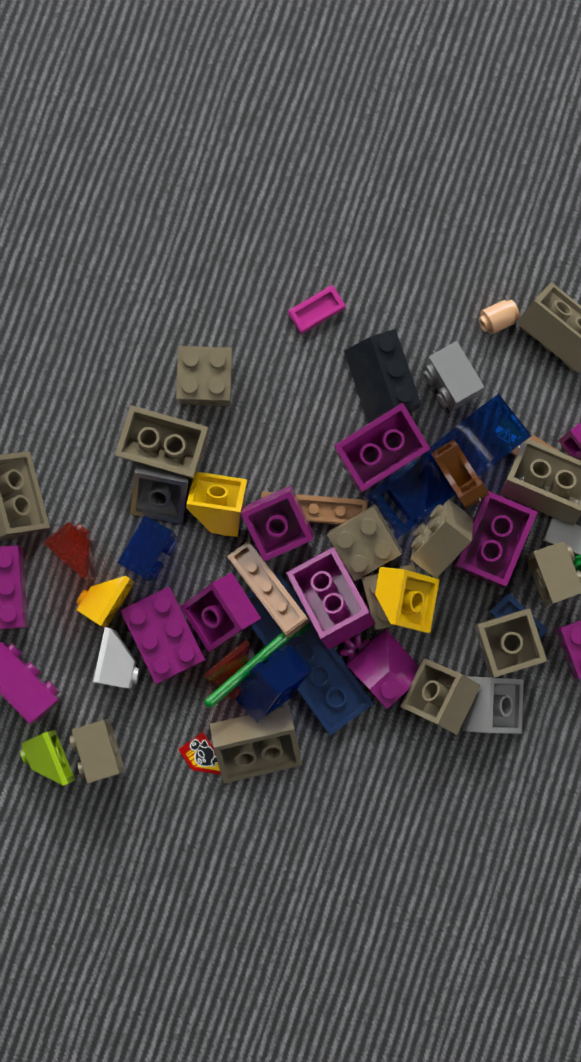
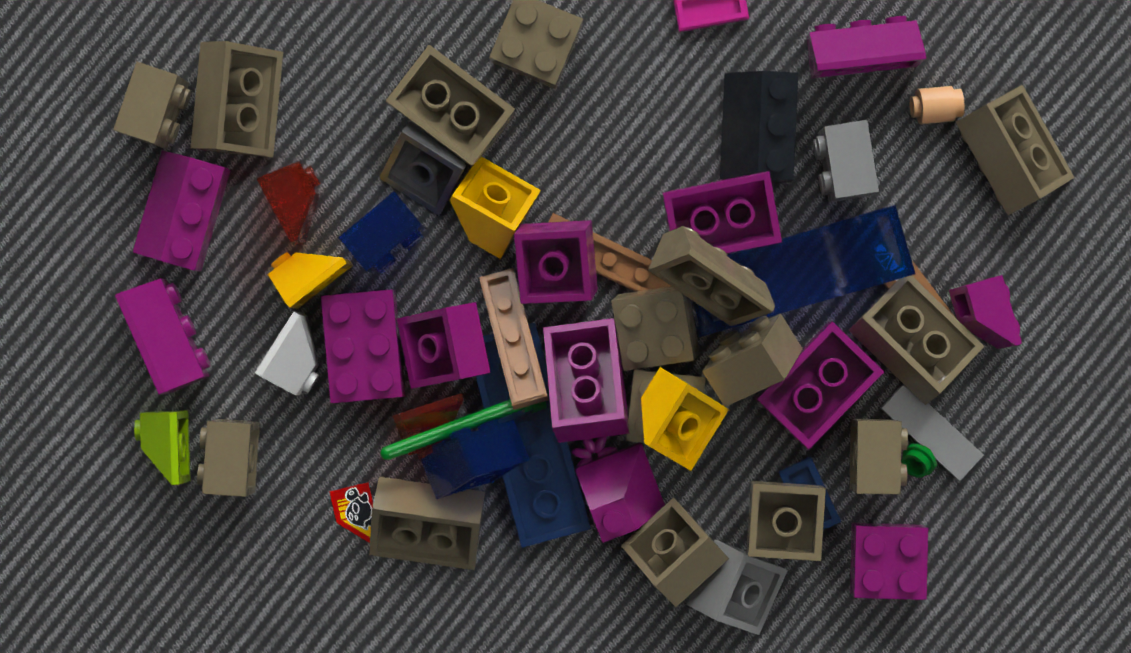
camera: 25 degrees right, 5 degrees up
(390, 491) = (710, 277): none -> dark tan slope
(434, 296) = (865, 47): none -> magenta slope
(460, 474) = (806, 288): reddish brown arch -> none

